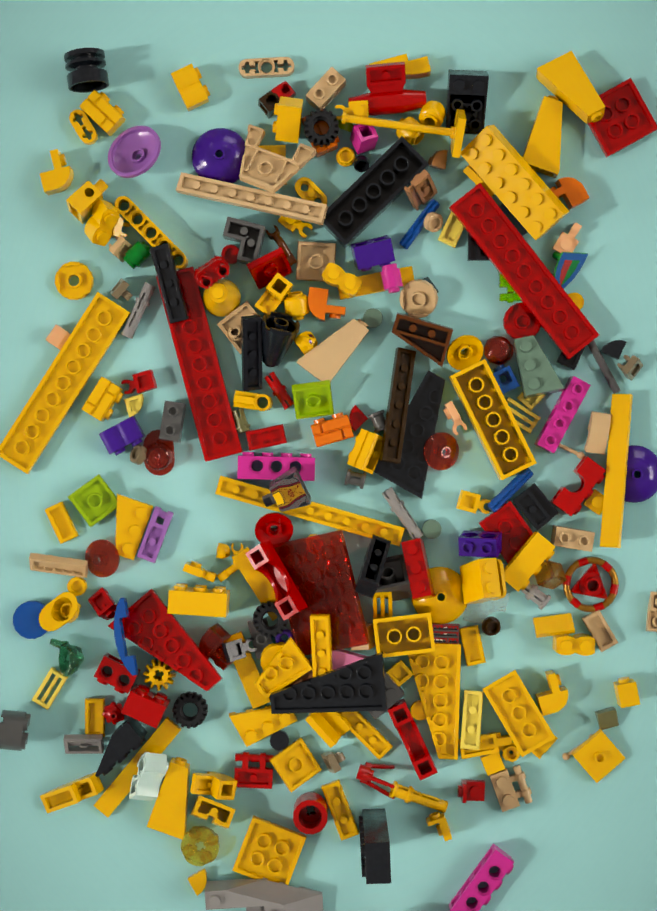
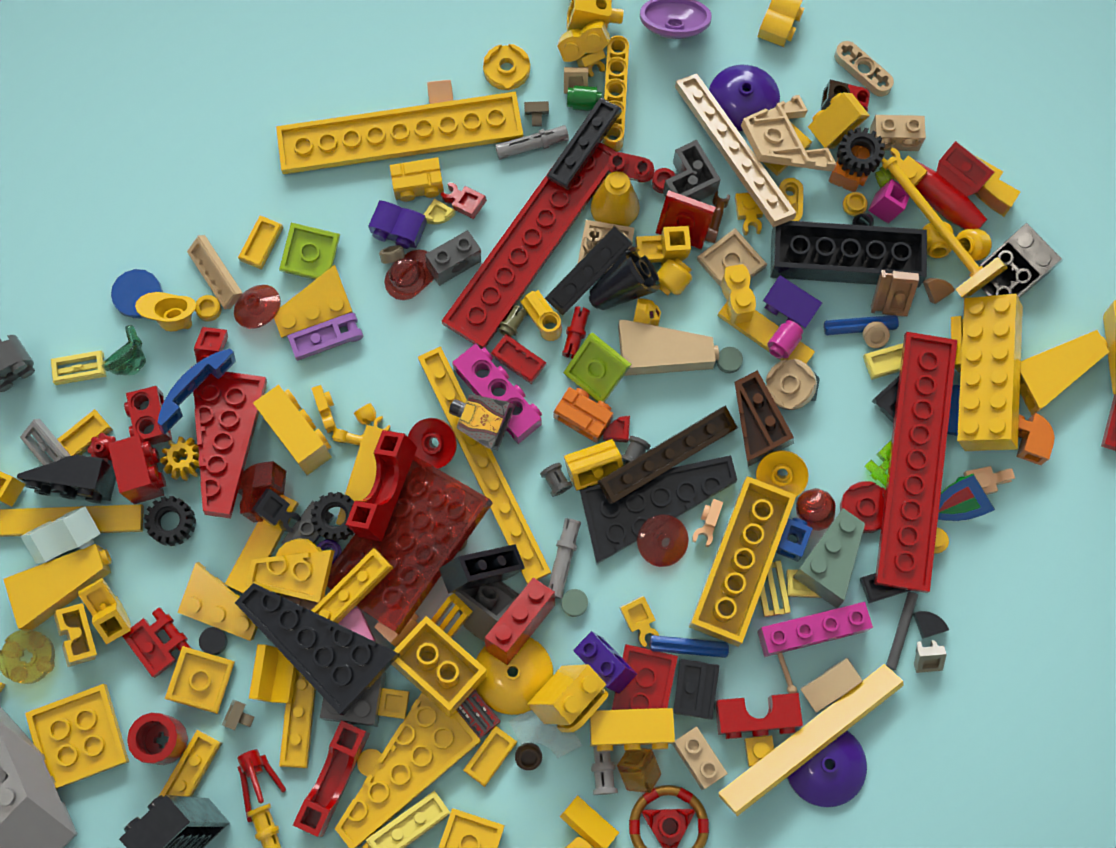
camera: 45 degrees right, 15 degrees down
(318, 305) = (693, 298): orange brick -> none

